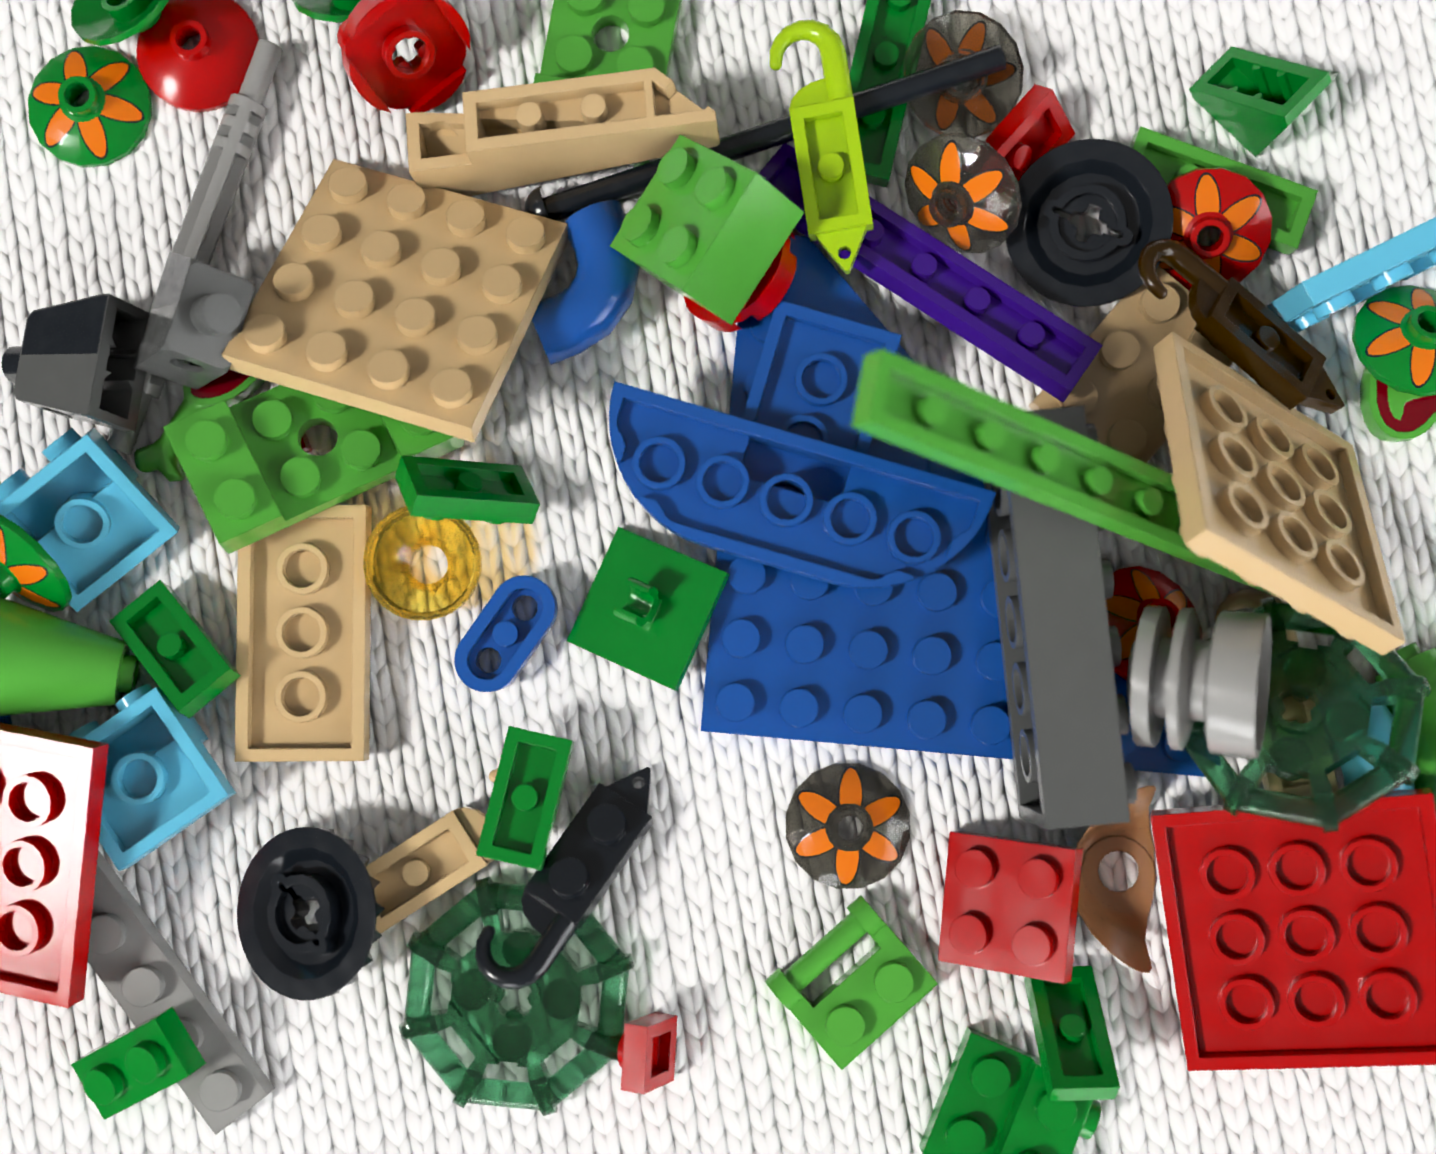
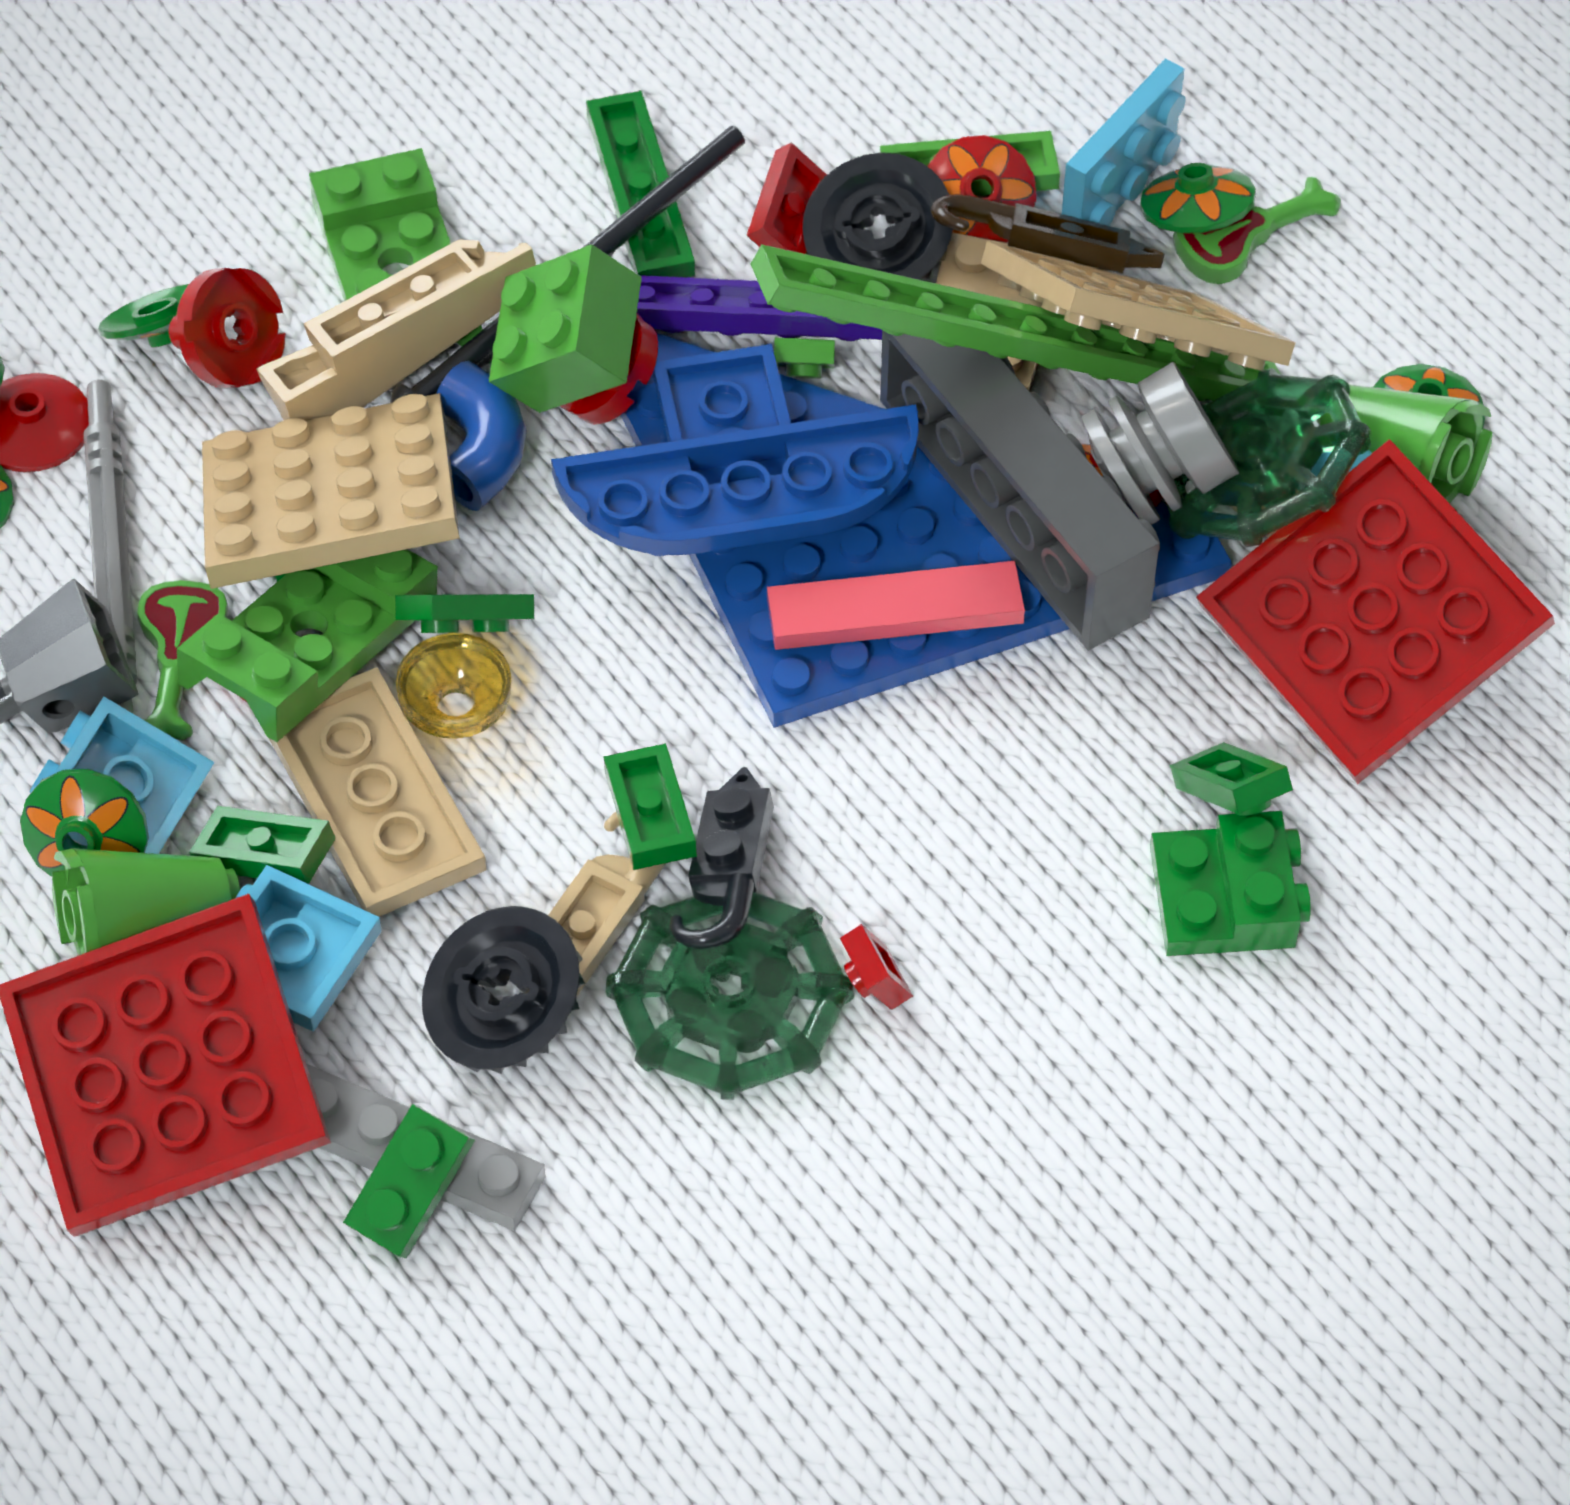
camera: 25 degrees left, 30 degrees down
(193, 321) = (157, 573): dark grey torso -> none
(504, 631) = (557, 720): blue plate -> none
(648, 608) = (671, 645): green piece -> none
(820, 806) = (947, 760): clear smoke dish -> none
(828, 145) = (634, 239): lime plate -> none
(863, 998) = (1043, 856): bright green plate -> none
(867, 684) = (895, 605): none -> coral tile
(935, 345) = (804, 356): none -> bright green plate
(975, 181) = (759, 213): clear smoke dish -> none
(981, 102) = (734, 183): clear smoke dish -> none
(1010, 906) = (1121, 715): red plate -> none
(1120, 916) = (1181, 636): medium nougat piece -> none
(1257, 94) = (966, 91): green slope -> none

